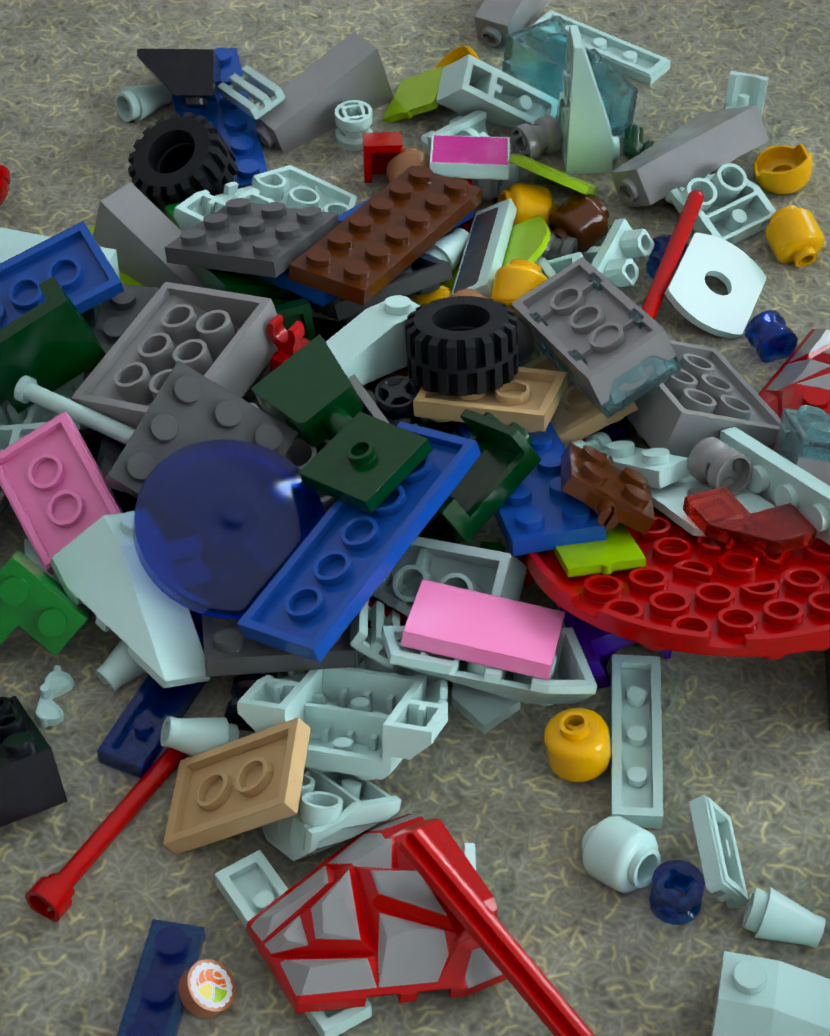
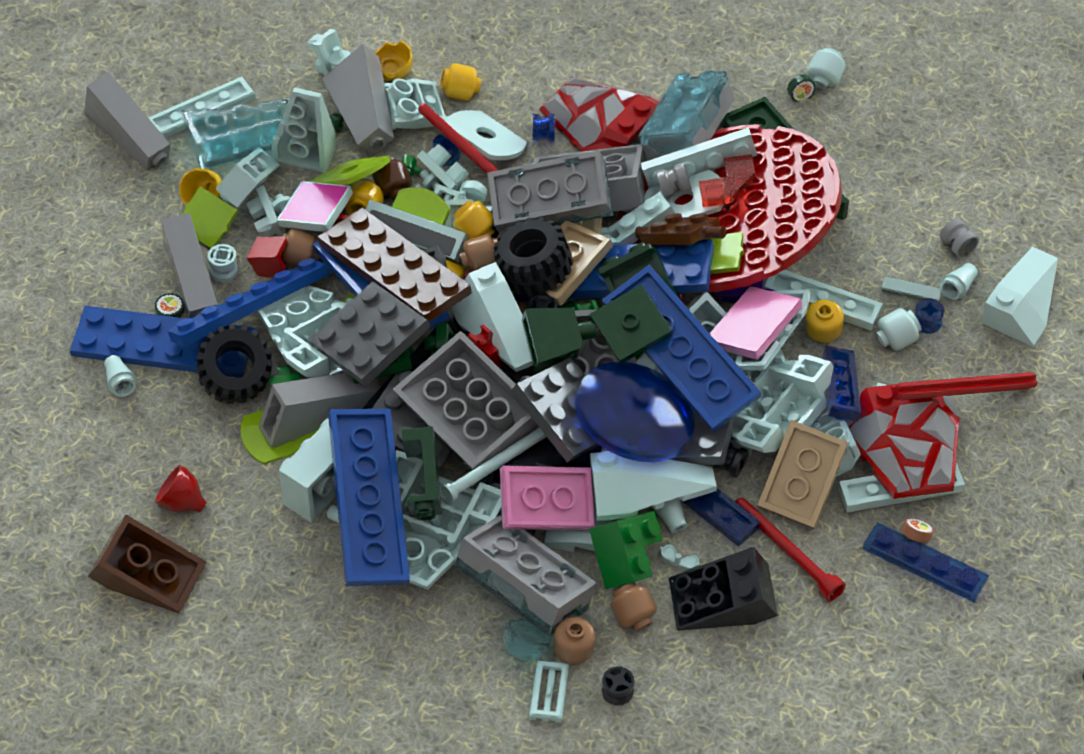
camera: 70 degrees left, 5 degrees up
(186, 73) = (128, 333): black slope -> none
(197, 734) = (750, 486): light aqua cone -> none
(243, 83) = (148, 299): light aqua tile -> none
(279, 147) = (242, 305): none -> blue plate
(445, 791) = (843, 390): none -> clear blue plate
(538, 138) = (291, 171): light grey wheel -> none

